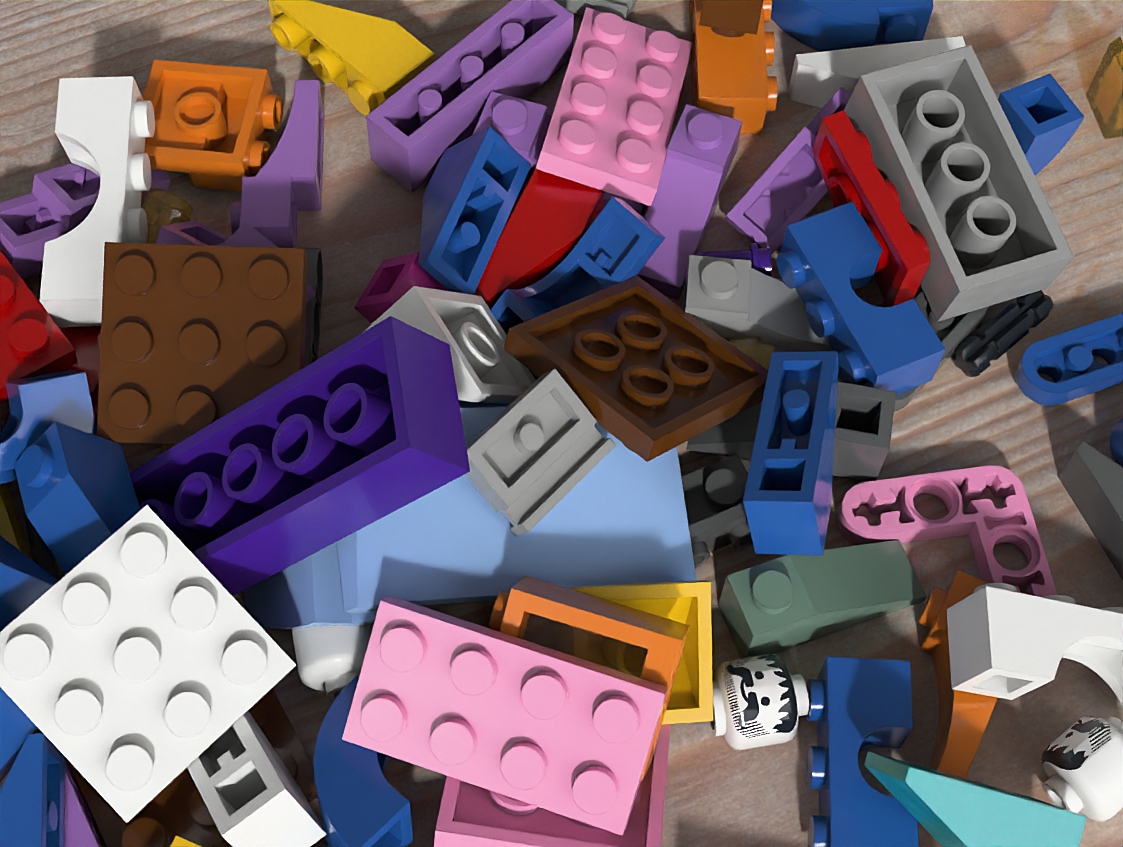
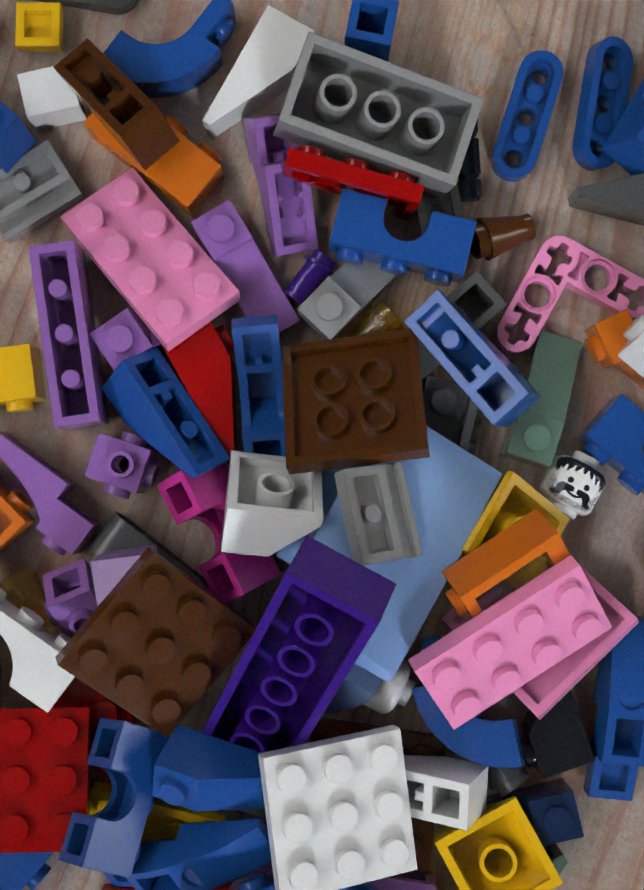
camera: 50 degrees left, 25 degrees up
(378, 216) = (108, 459): none -> medium lavender brick
(957, 416) = (500, 234): none -> reddish brown cone

